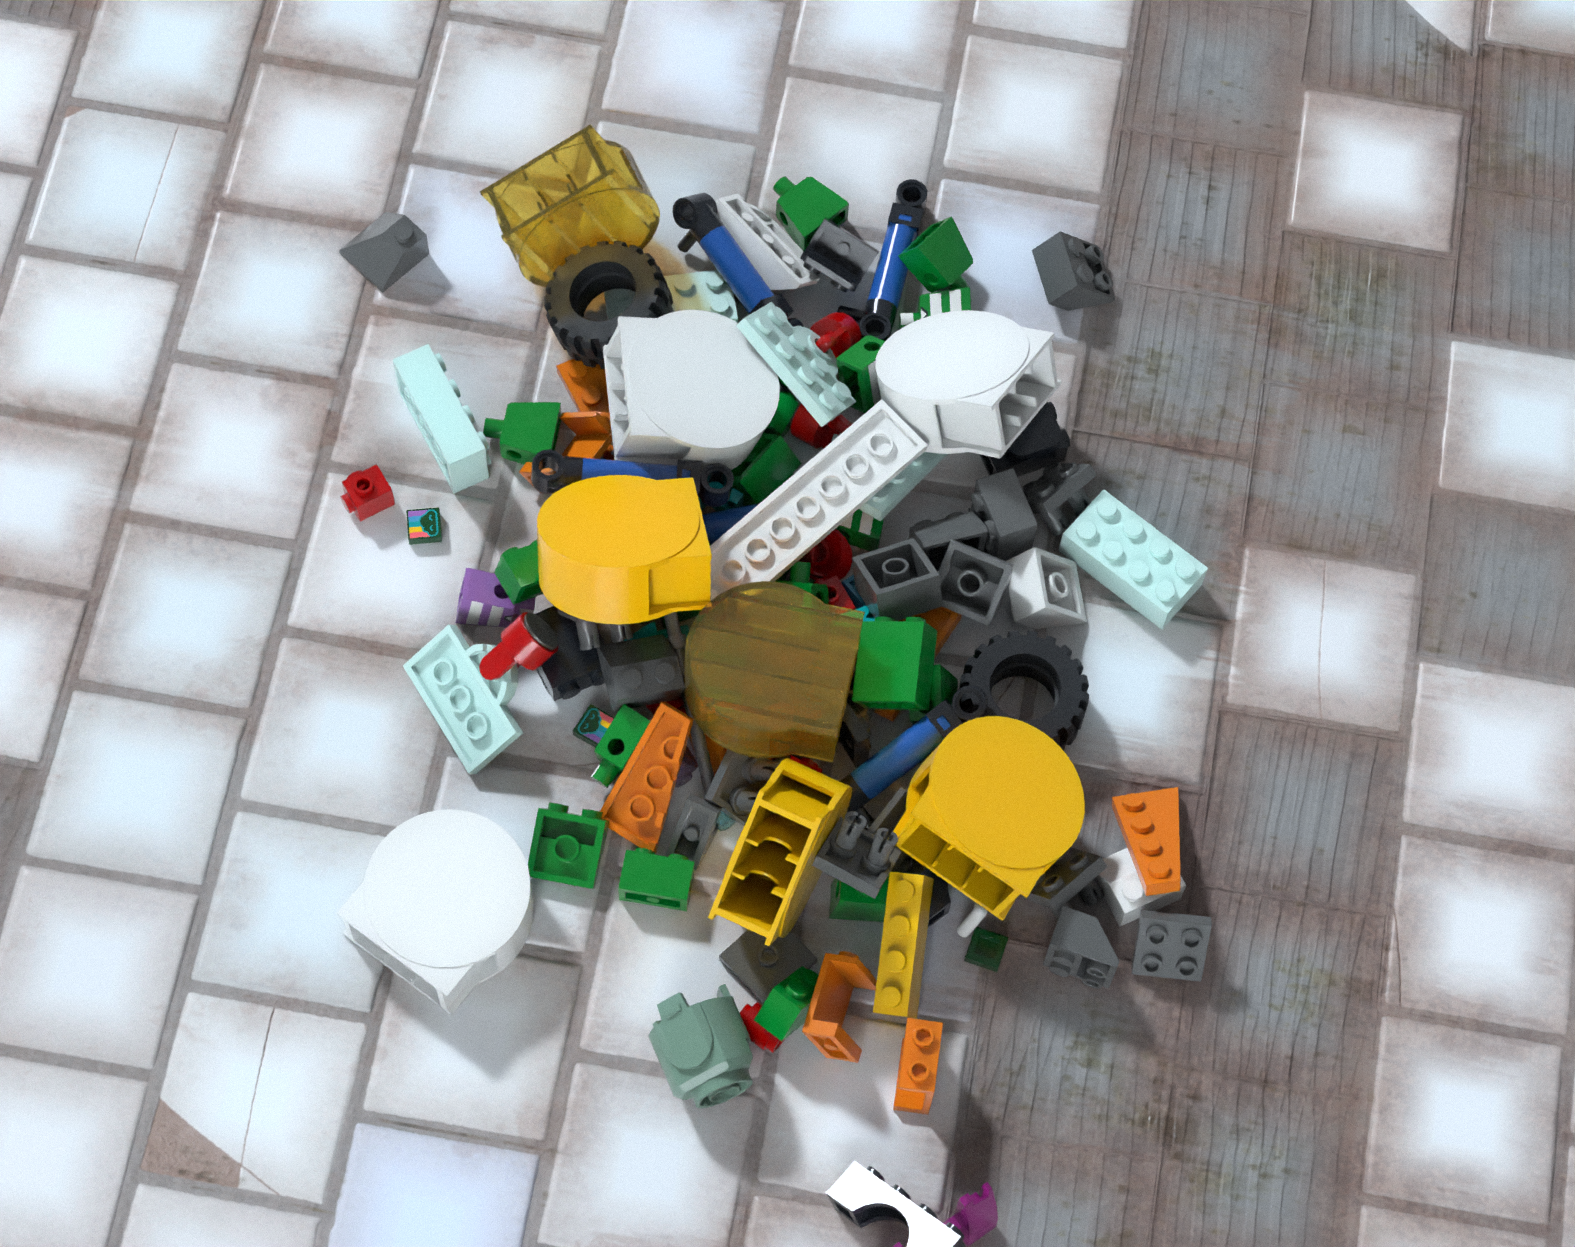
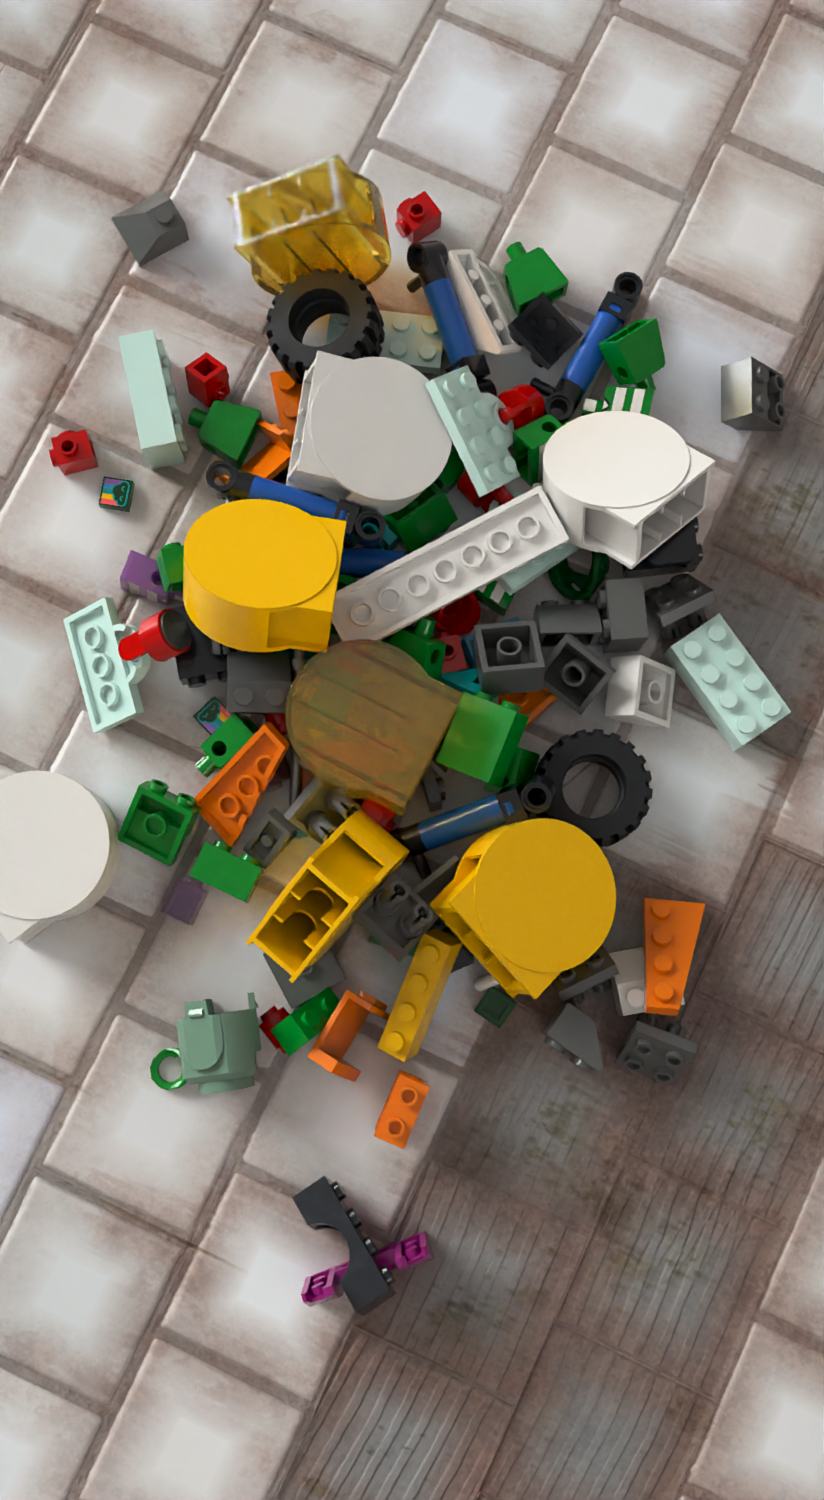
camera: 15 degrees right, 15 degrees up
(493, 386) = (207, 379): none -> red brick
(619, 920) = (185, 900): none -> clear purple brick
(643, 1086) = (154, 1069): none -> green piece
(670, 177) = (418, 217): none -> red brick
(930, 497) = (563, 576): none -> dark green helmet

